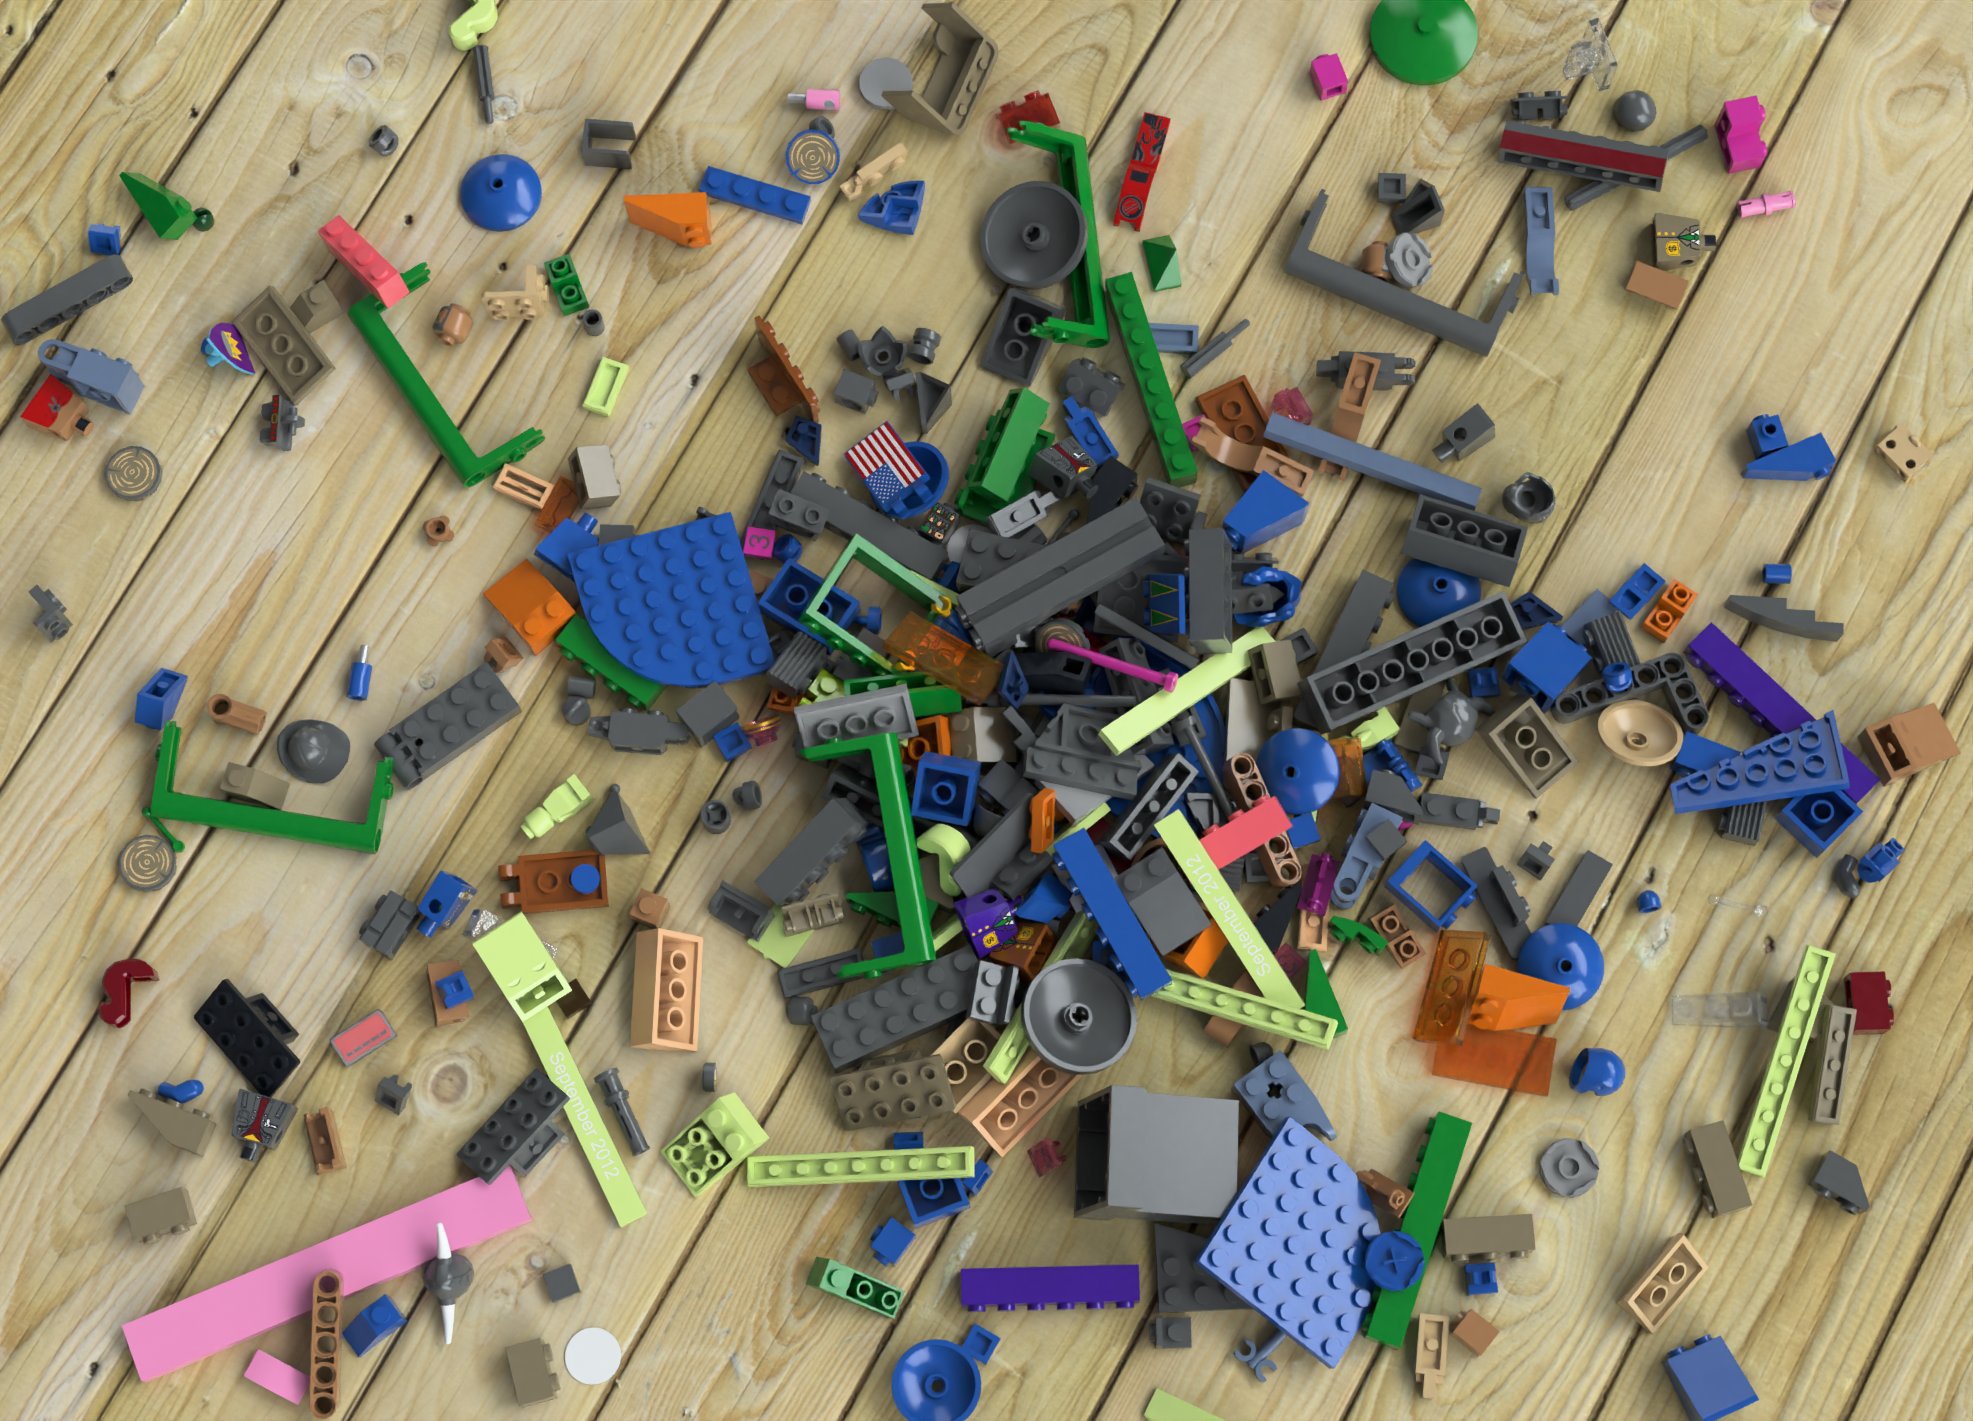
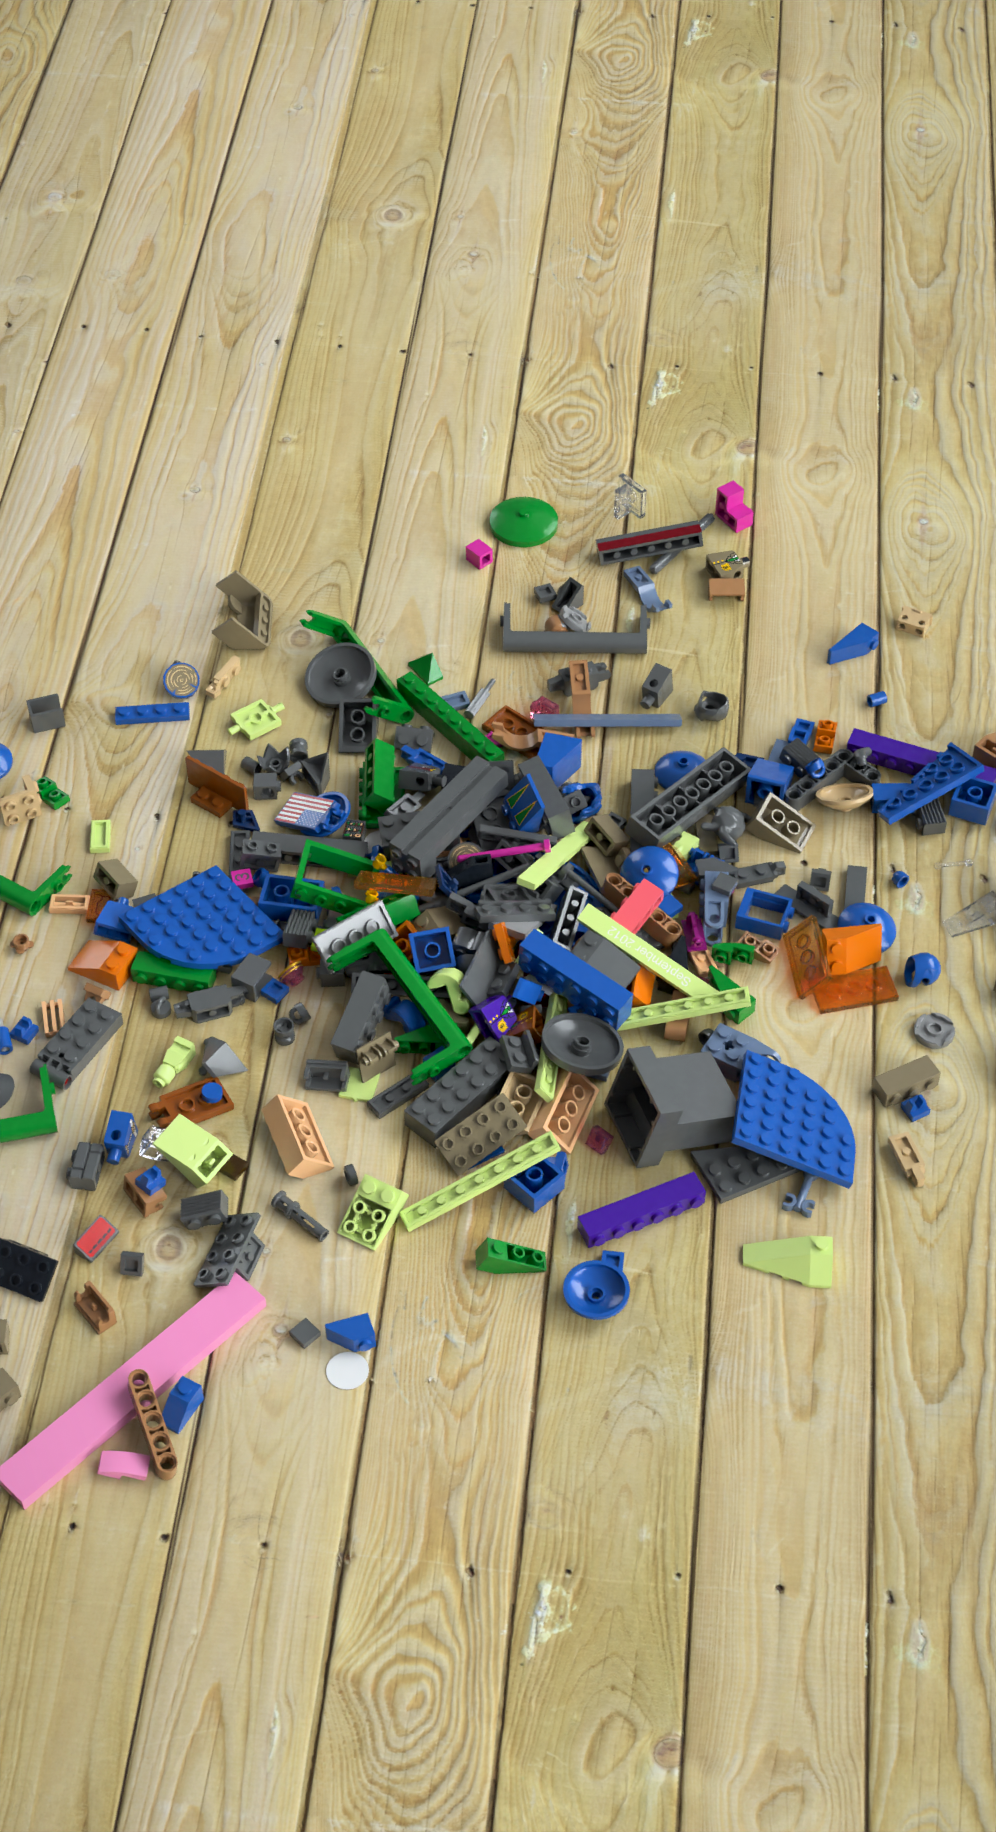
camera: 25 degrees left, 25 degrees down
(260, 1122) = (44, 1312): dark grey torso -> none
(391, 676) = (24, 1031): none -> blue tile
(441, 646) = (52, 1005): none -> light nougat tile
(447, 1279) = (221, 1355): dark grey helmet -> none
(506, 1056) = (204, 1209): none -> dark grey brick
(532, 1372) = (310, 1391): dark tan brick -> none
(585, 1118) = (280, 1234): yellowish green tile -> none
(590, 316) = (77, 804): dark grey hinge -> none
(618, 1313) = (352, 1333): none -> blue slope
(649, 909) = (263, 1093): medium nougat brick -> none
(674, 216) = (104, 733): orange slope -> none
(798, 315) = (211, 758): none -> dark grey slope
(800, 1010) = (394, 1120): dark grey piece -> none
(817, 99) = (170, 655): bright pink piece -> none
(881, 76) = (204, 639): light grey tile -> none
(889, 264) = (256, 719): none -> yellowish green plate
(891, 1242) = (522, 1223): blue brick -> none
(896, 209) = (245, 693): blue brick -> none
(1035, 108) = (297, 628): clear red bracket -> none
(1142, 170) = (390, 630): piece -> none
(1171, 1332) = (735, 1209): dark grey bracket -> none
(1385, 1192) = (830, 1077): medium nougat hinge -> none
(1394, 1261) = (856, 1108): blue tile -> none
(1420, 1220) = (861, 1095): green brick -> none
(1464, 540) = (685, 736): dark grey brick -> none
(1473, 1332) = (928, 1135): medium nougat brick -> none
(1484, 682) = (737, 802): blue tile -> none
(1551, 105) = (615, 528): dark grey hinge -> none
(1635, 110) = (666, 516): dark grey hair -> none
(1693, 679) = (861, 755): none -> dark grey arm
(1766, 204) = (766, 536): bright pink pin -> none
(1766, 435) = (830, 635): blue brick -> none
(1773, 614) = (889, 717): dark grey slope -> none

